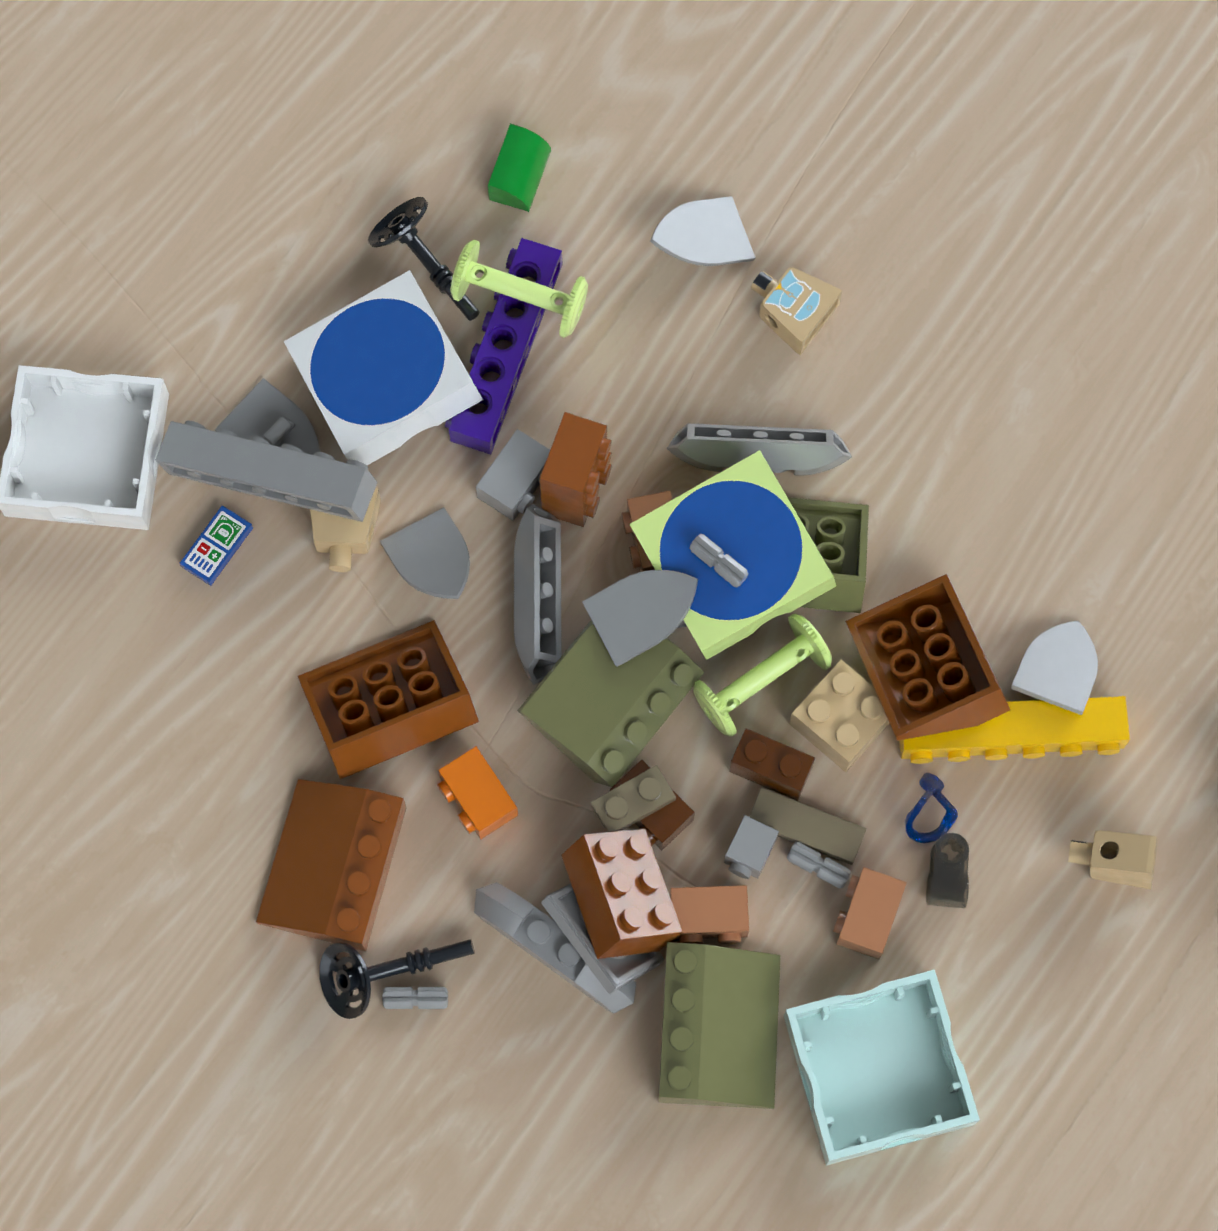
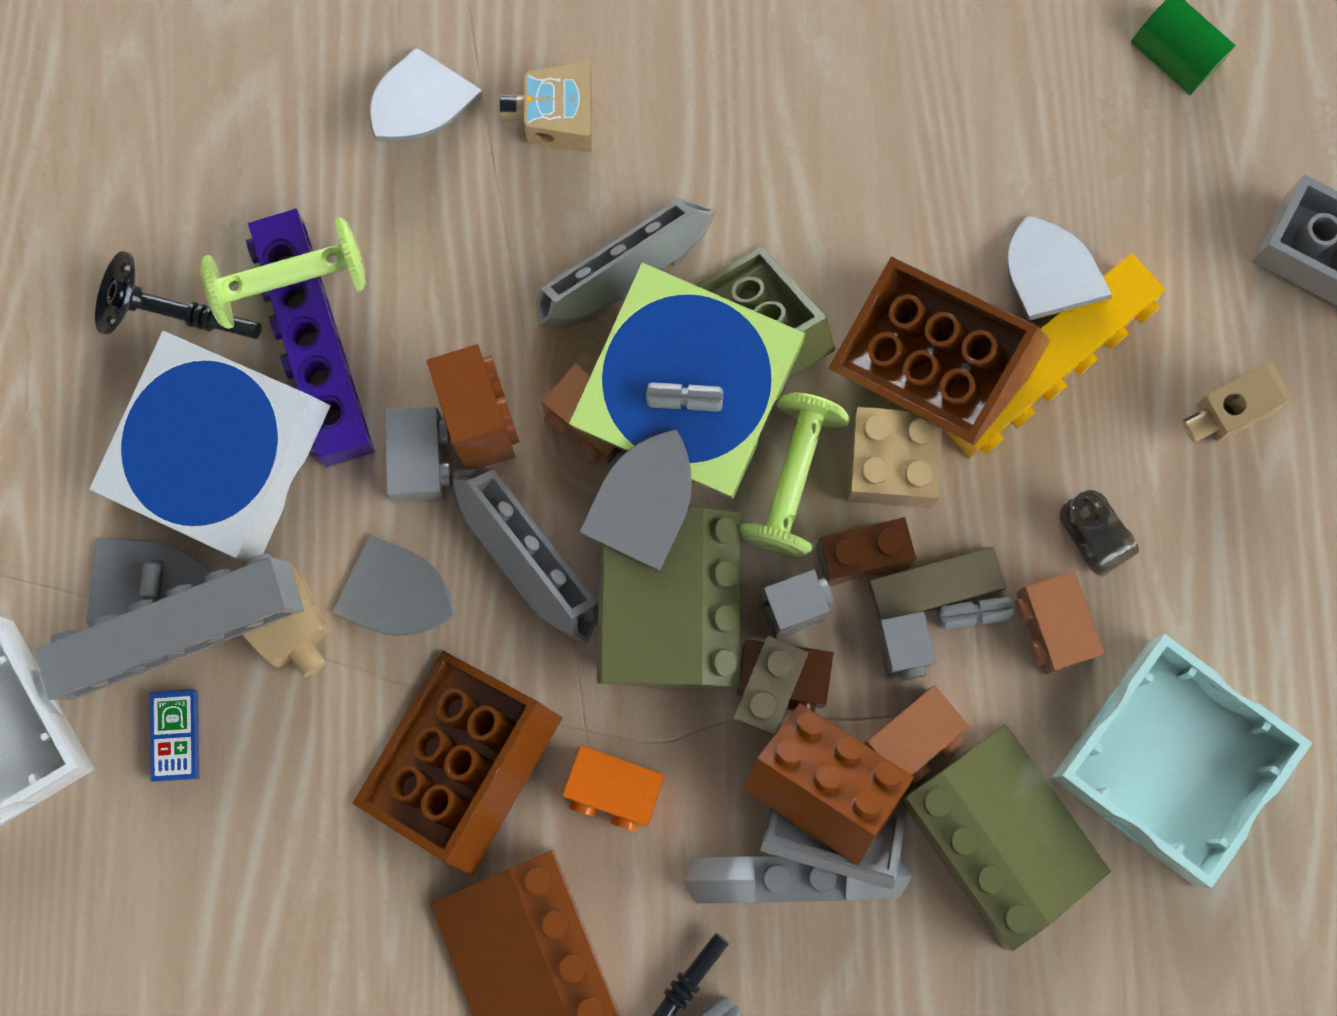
camera: 40 degrees left, 5 degrees up
(518, 168) = (193, 160): green brick -> none
(694, 761) = (796, 603): none -> light grey brick
(932, 786) = (1022, 462): clear blue piece -> none

